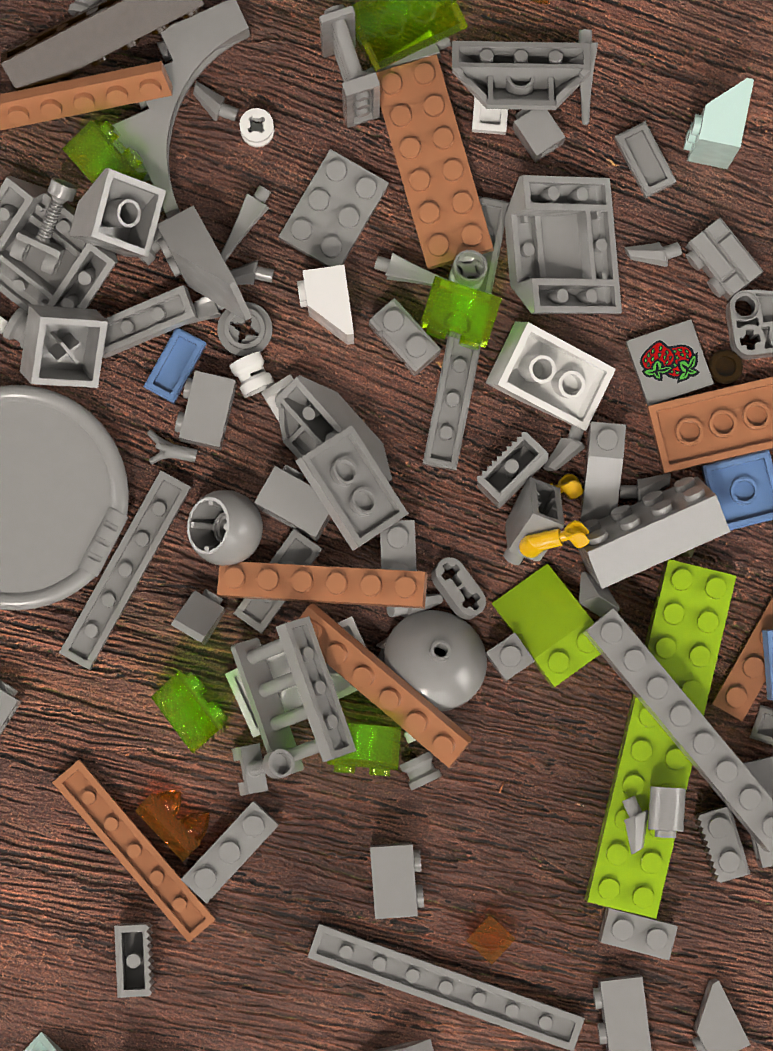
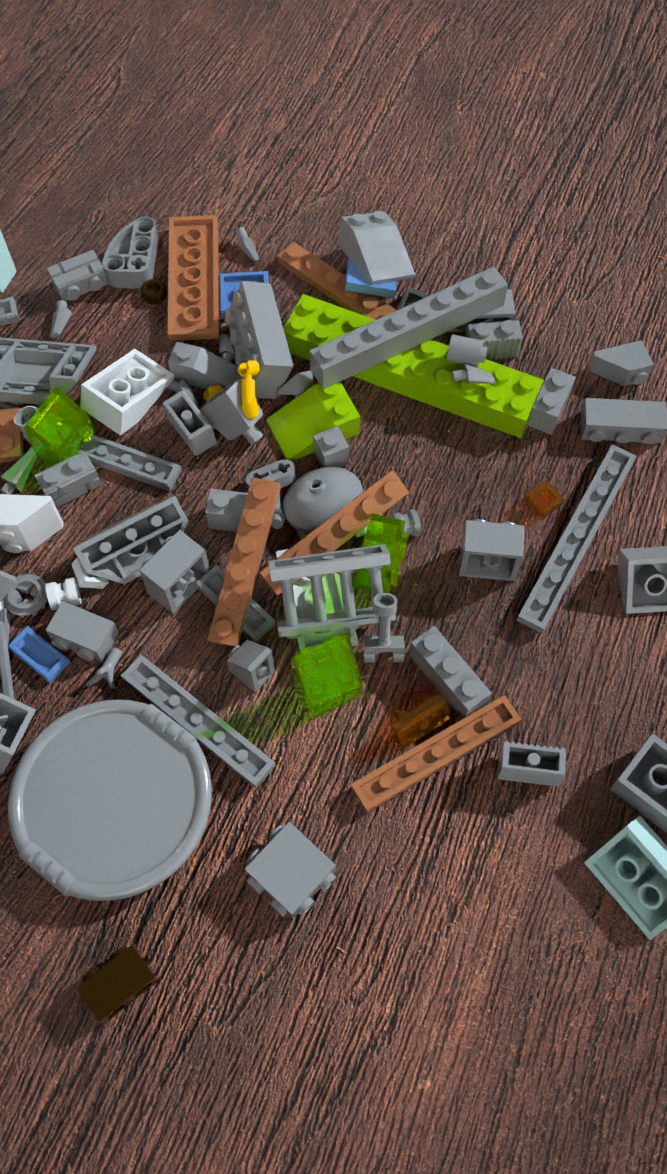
camera: 75 degrees left, 20 degrees down
(224, 527) = (170, 636): light grey wheel -> none
(351, 487) = (172, 515): light grey plate -> none
(669, 363) = (141, 322): light grey tile -> none

